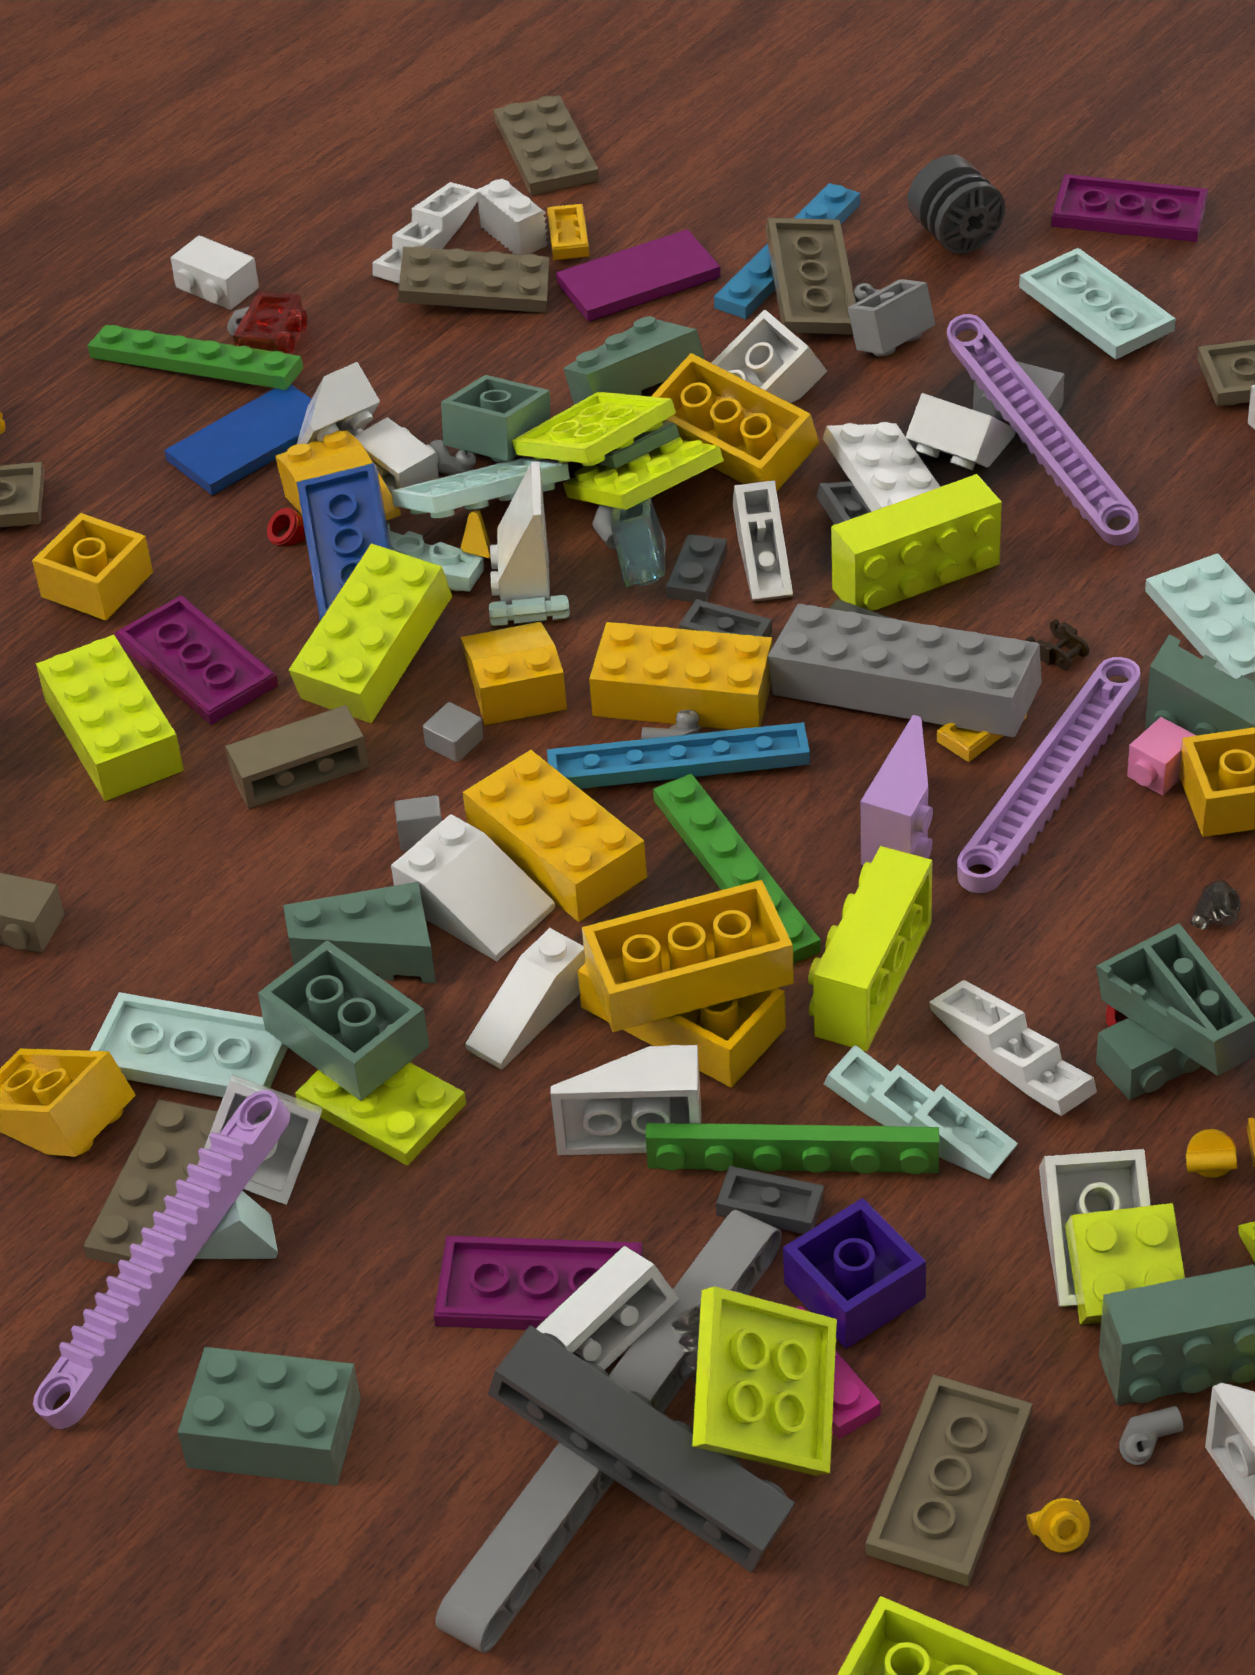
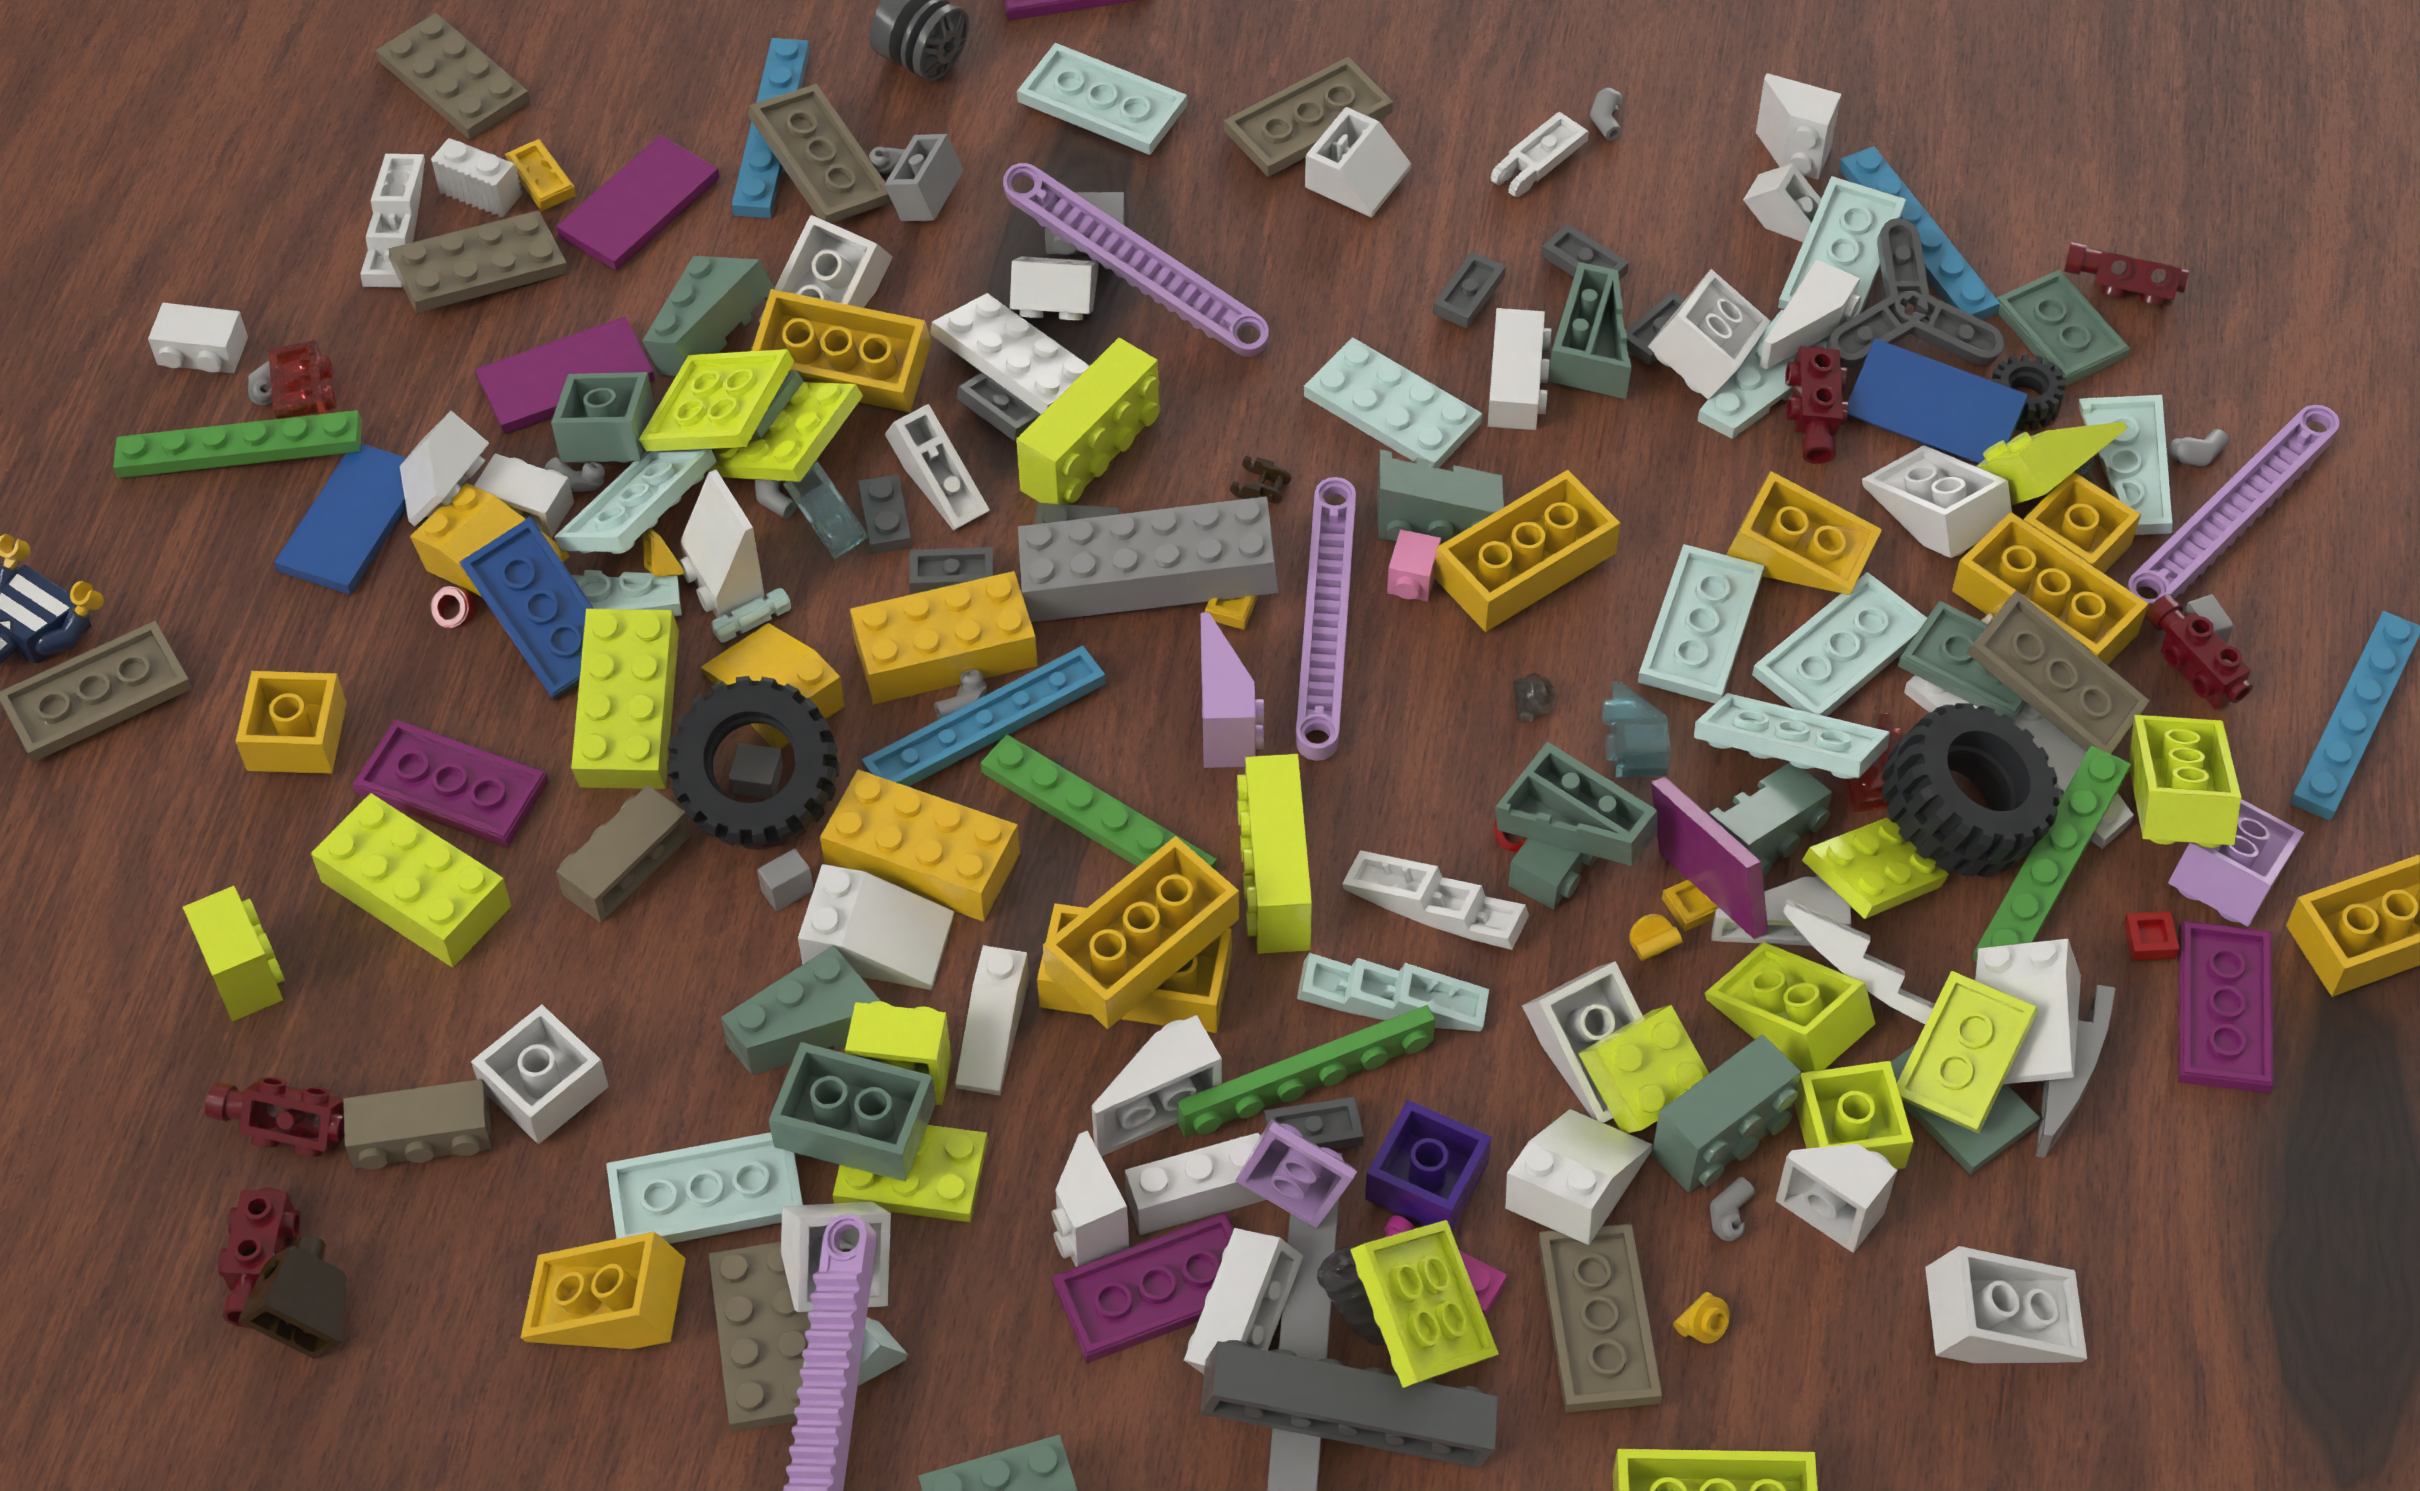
camera: 30 degrees left, 10 degrees up
(109, 900) = (540, 1074): none -> white brick
(410, 672) = (717, 717): none -> black tyre
(432, 979) = (904, 1039): none -> neon yellow brick
(446, 375) = (530, 383): none -> magenta tile
(505, 1179) = (1089, 1207): none -> white slope
(628, 1205) = (1190, 1185): none -> white brick
(705, 1211) = (1295, 1173): none -> lavender slope
(997, 1333) = (1574, 1174): none -> white slope

